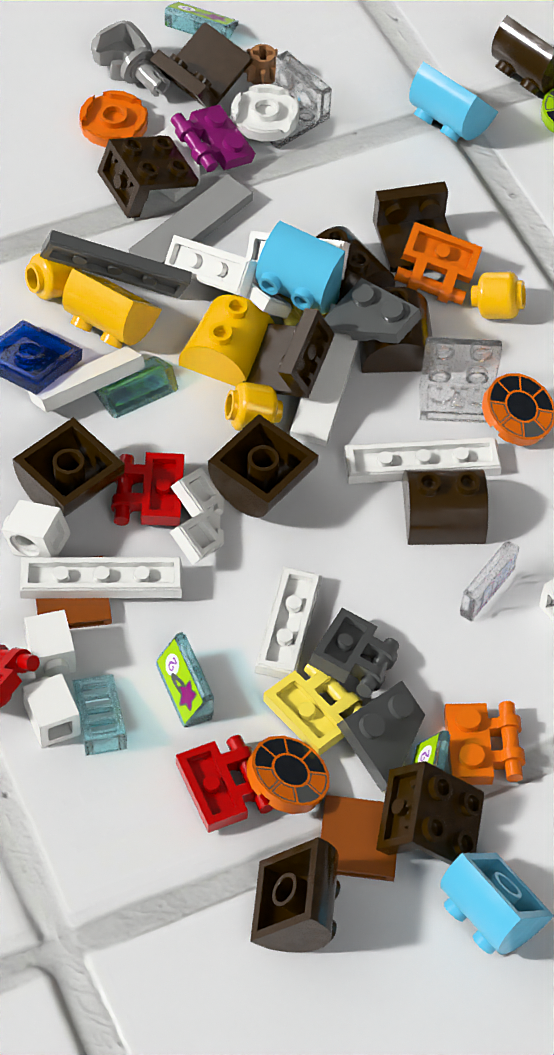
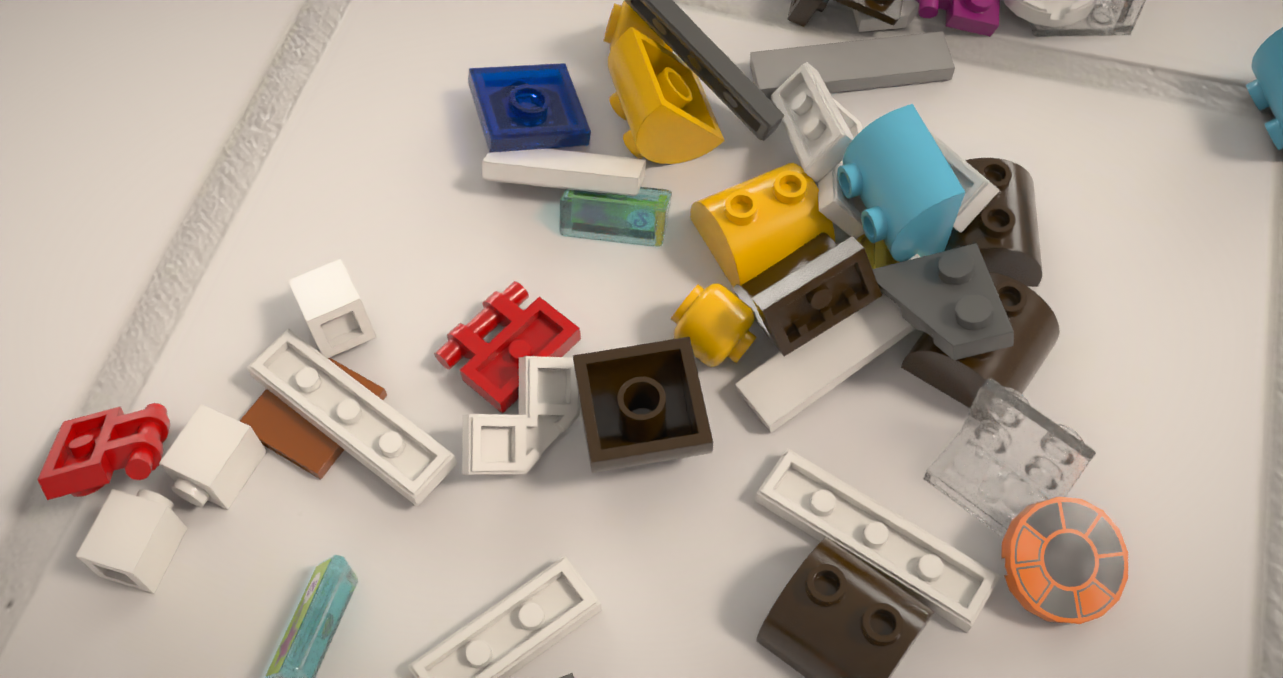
camera: 45 degrees right, 5 degrees up
(67, 467) = (423, 257): dark brown brick -> none
(105, 739) = (187, 614): clear light blue slope -> none
(398, 211) = (1125, 224): dark brown bracket -> none
(442, 254) = (1128, 277): orange plate -> none
(499, 295) = (1169, 381): yellow head -> none

